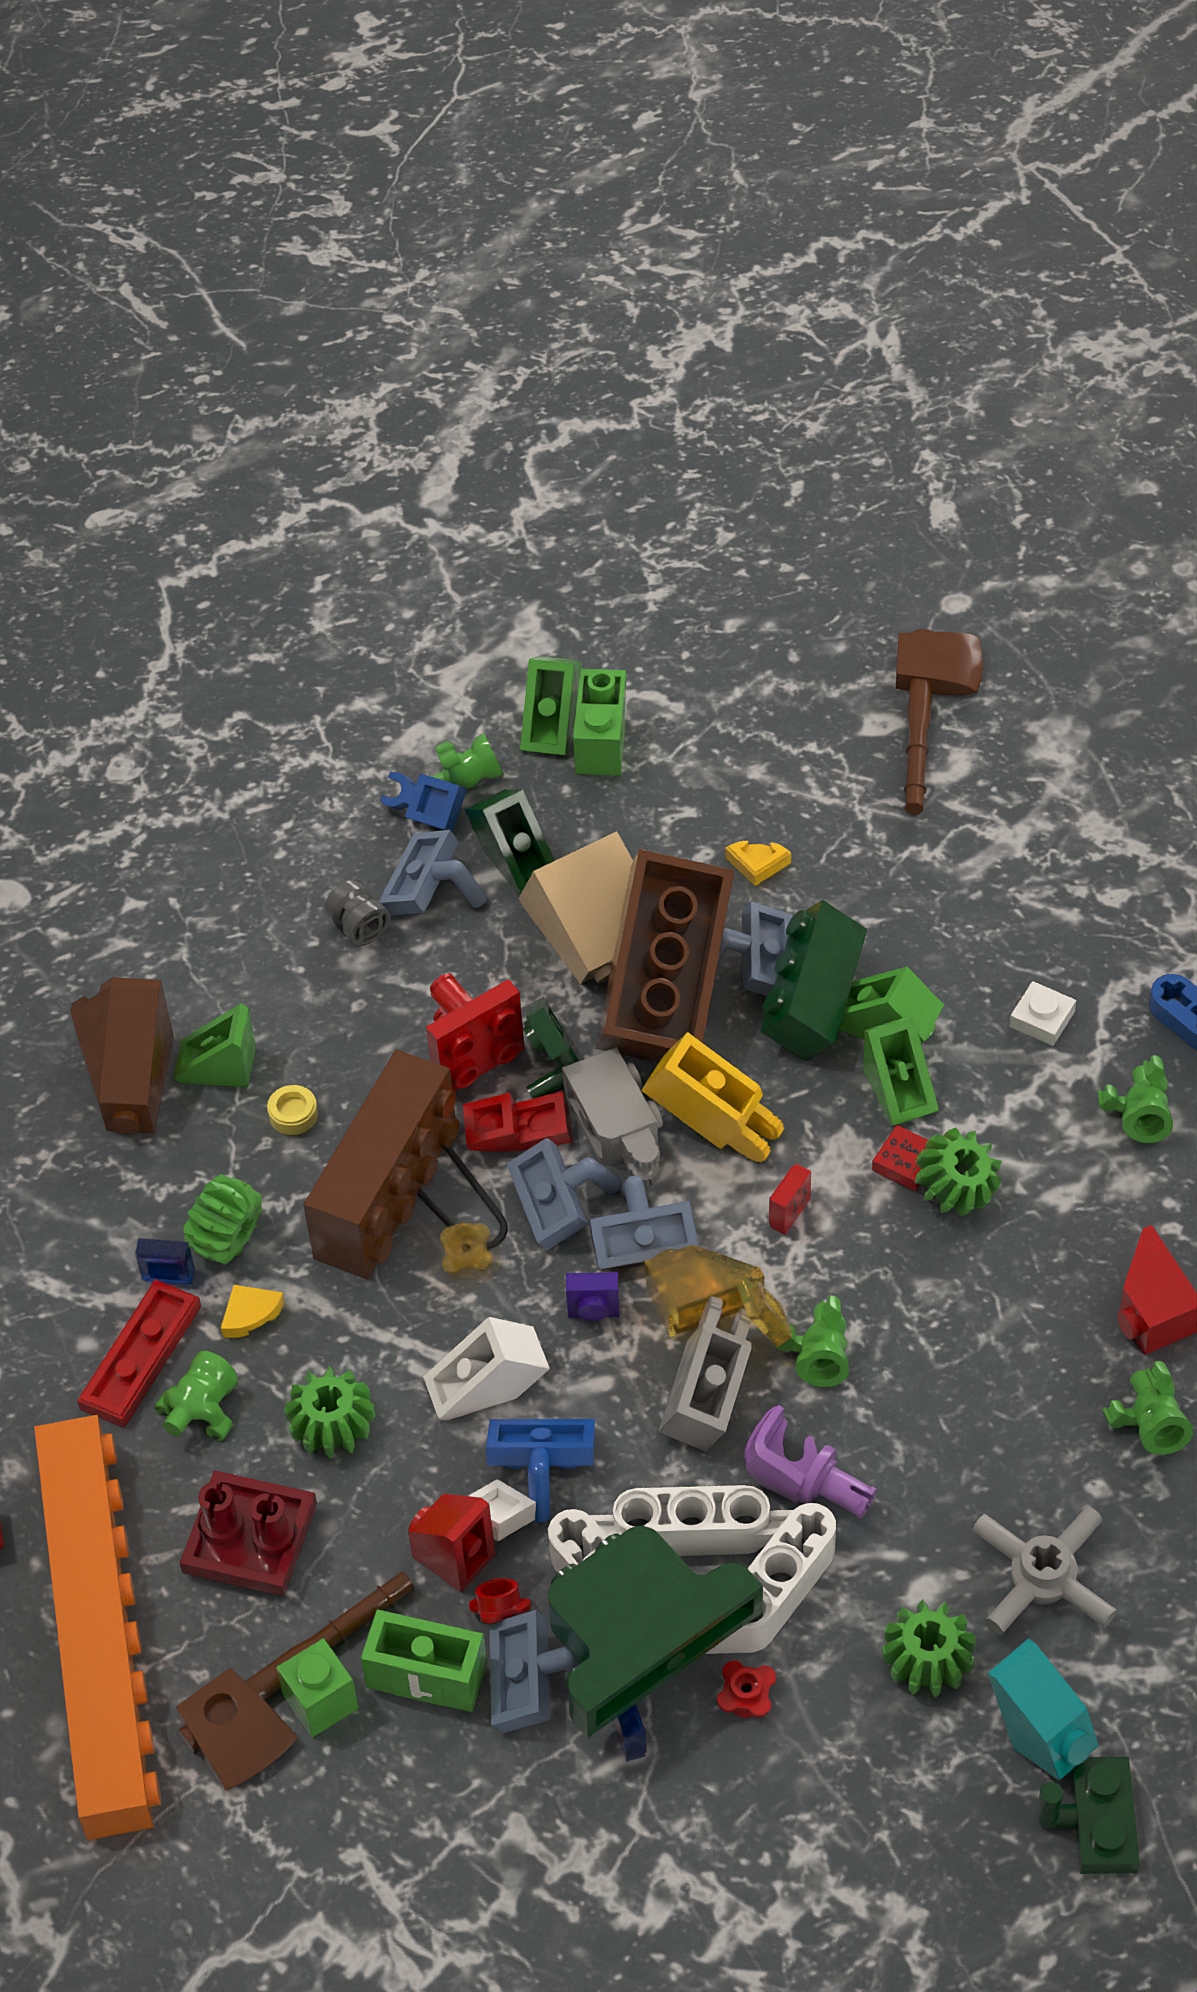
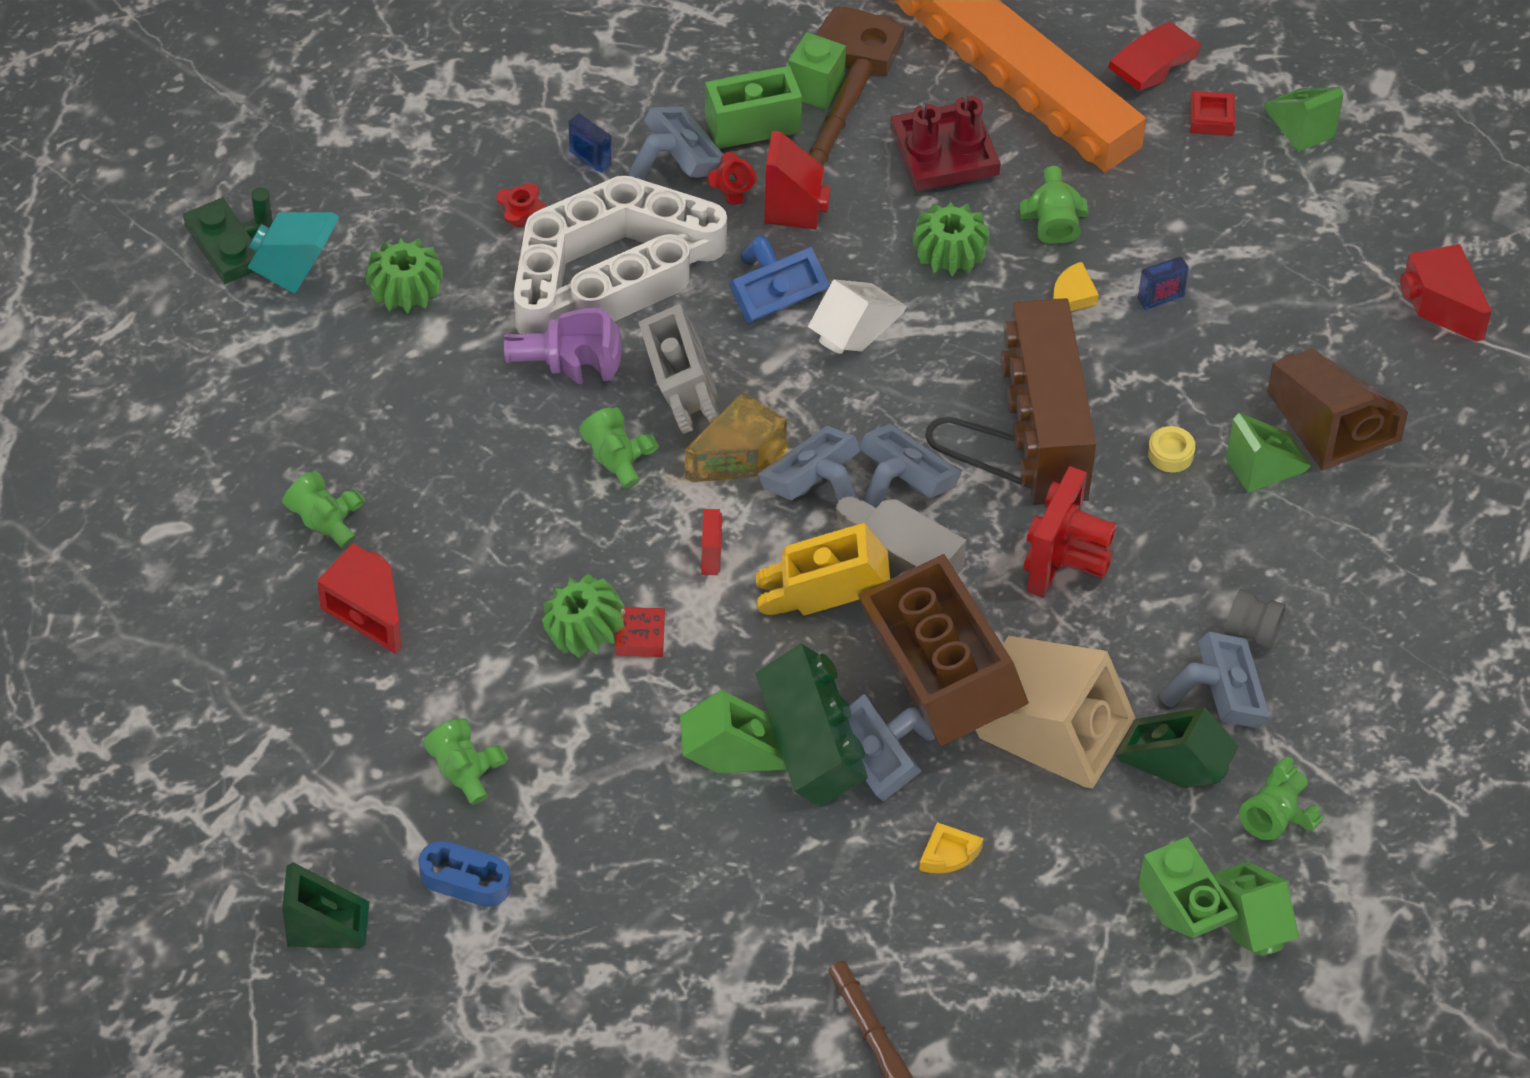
camera: 145 degrees right, 0 degrees up
(139, 1353) = (1128, 226): red tile -> none
(223, 1219) = (1141, 316): bright green gear -> none
(428, 801) = (1268, 749): blue plate -> none
(465, 1234) = (945, 399): clear yellow plate -> none
(504, 1125) = (987, 512): red slope -> none
(508, 1508) = (780, 226): white plate -> none
(547, 1033) = (1000, 561): dark green plate -> none
(592, 1295) = (816, 401): dark purple plate -> none
(640, 1619) = (611, 160): dark green brick -> none
(765, 1311) = (669, 430): clear yellow tile -> none
(898, 1070) = (685, 683): bright green slope -> none
(1042, 1013) = (597, 816): white plate -> none
(1044, 1570) = (347, 360): light grey bar -> none

